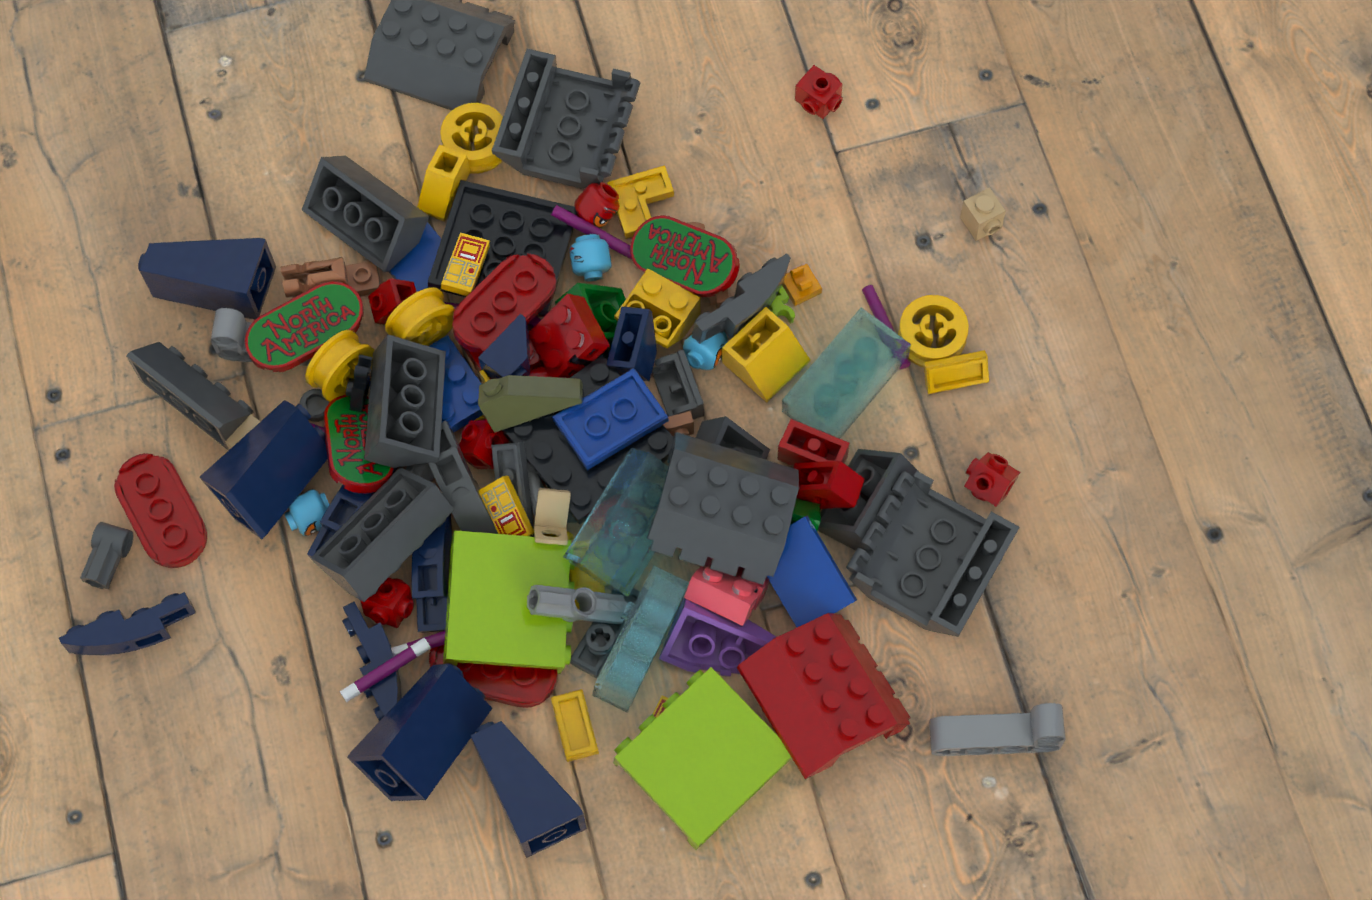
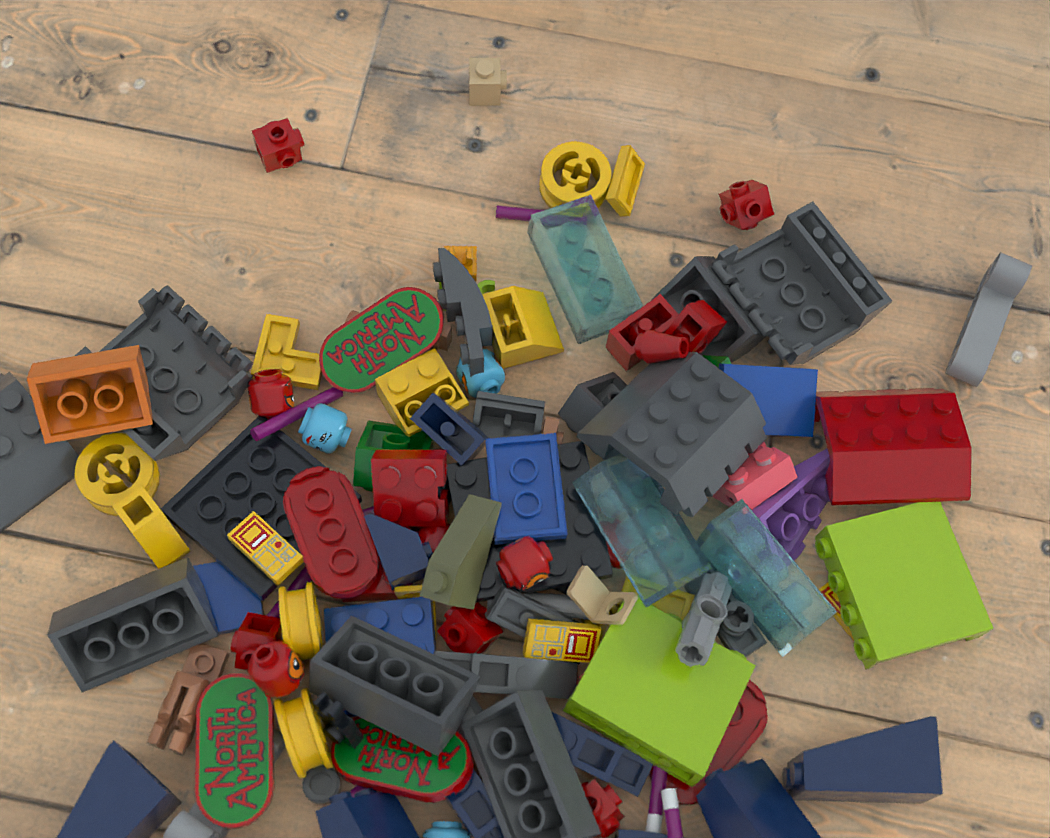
camera: 70 degrees left, 0 degrees up
(372, 317) = (276, 669): none -> red head
(515, 78) = (90, 394): none -> orange slope
(544, 445) = (524, 563): none -> red head
(574, 725) = (806, 688): yellow tile -> none
(791, 458) = (658, 346): none -> red cone

